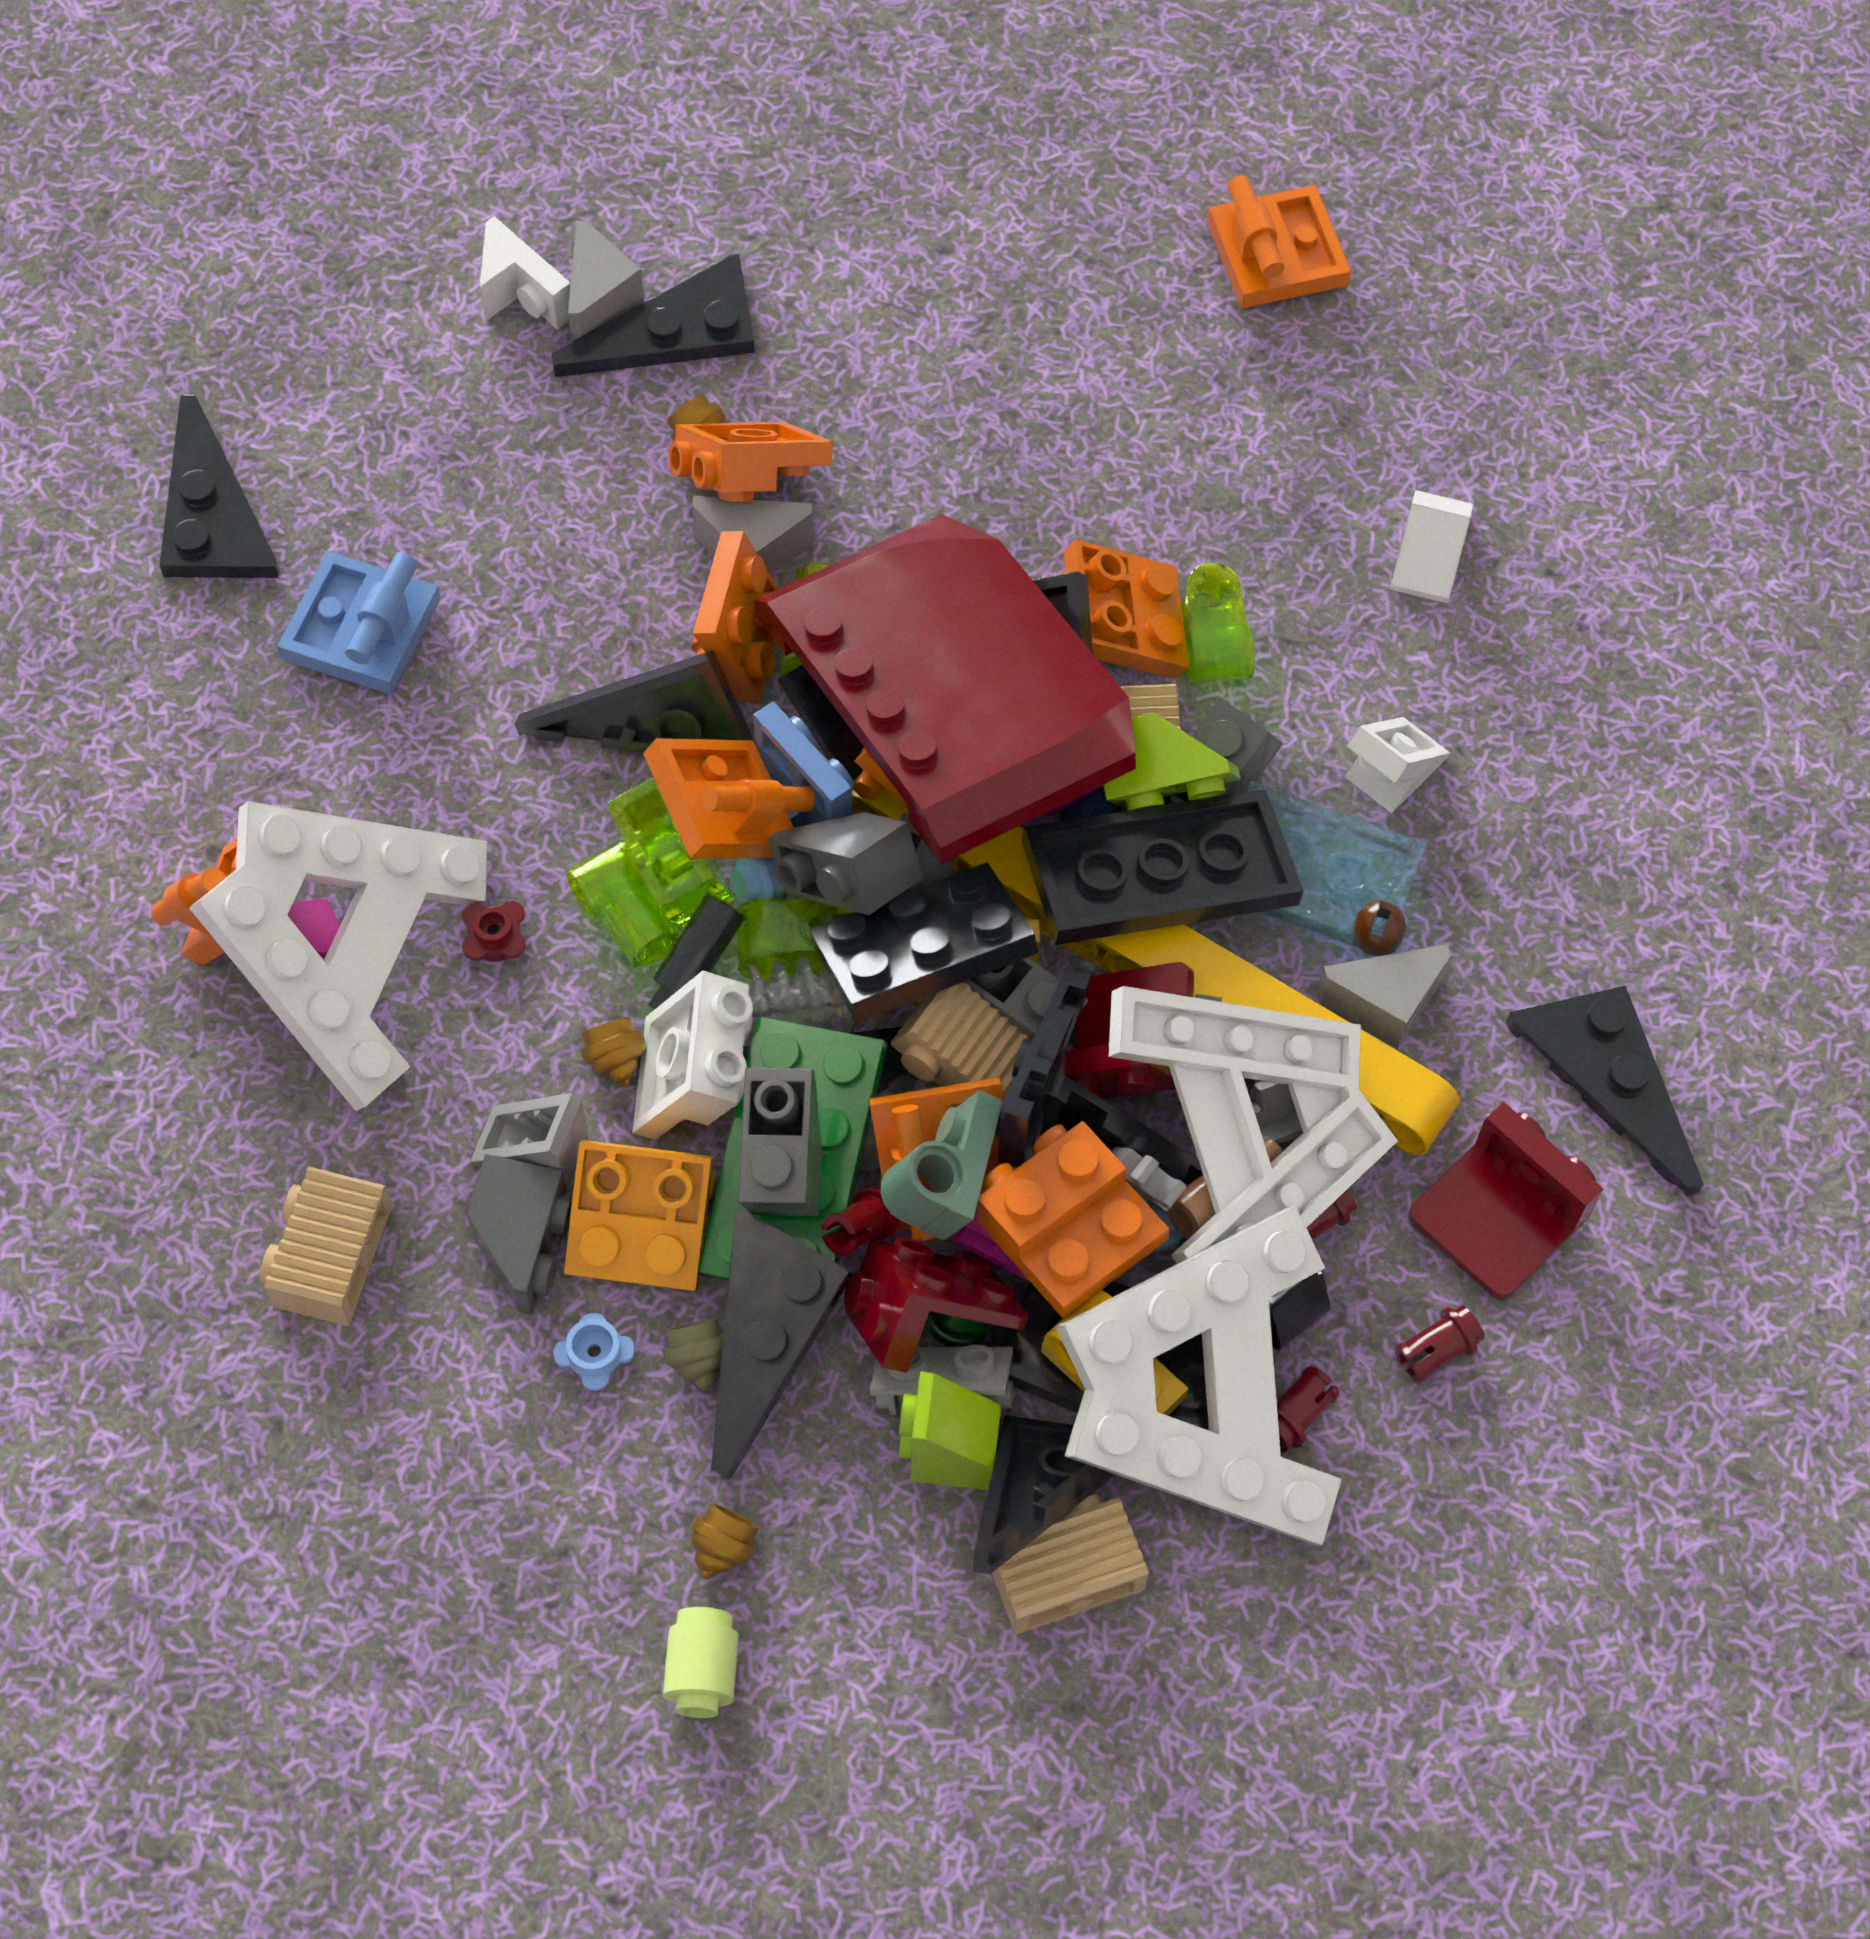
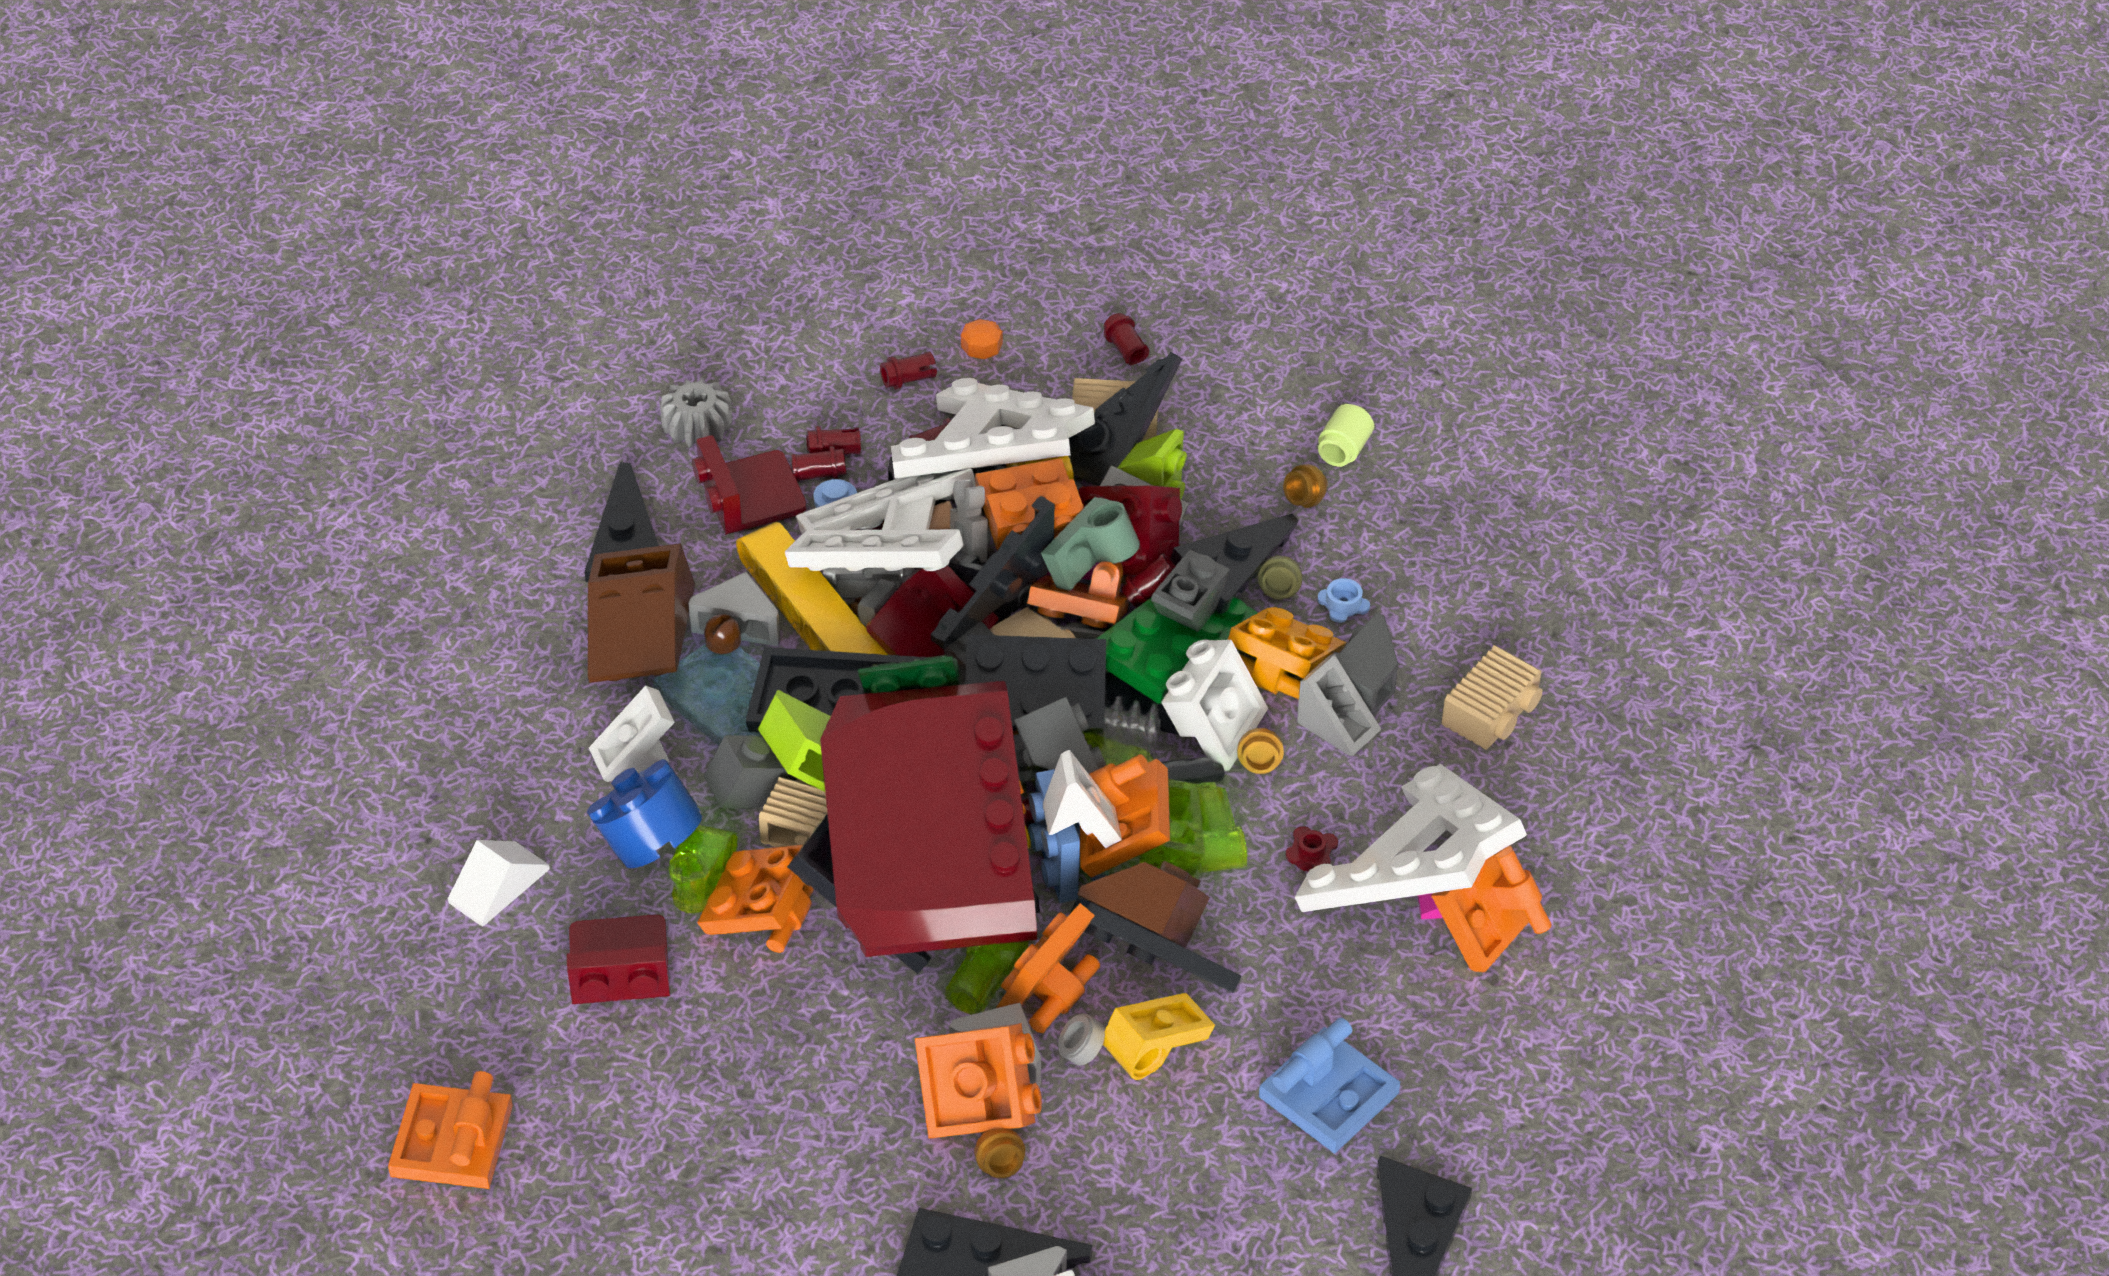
camera: 155 degrees left, 15 degrees down
(582, 604) = (1147, 1031): none -> yellow plate
(647, 700) = (1153, 898): none -> reddish brown slope
(666, 576) = (1081, 1039): none -> light grey tile
(762, 735) = (1077, 798): none -> white slope
(1064, 821) = (918, 674): none -> dark green hinge
(1123, 1740) = (1121, 331): none -> dark red pin
(1230, 481) = (618, 959): none -> dark red bracket
(1303, 623) = (645, 813): none -> blue brick
(1343, 1652) = (981, 338): none -> orange tile
(1380, 1248) = (832, 491): none -> light blue plate
(1414, 1530) = (909, 369): none -> dark red pin
(1422, 1300) = (819, 464): none -> dark red pin
(1502, 911) = (637, 612): none -> reddish brown slope
(1647, 1328) = (695, 411): none -> light grey gear

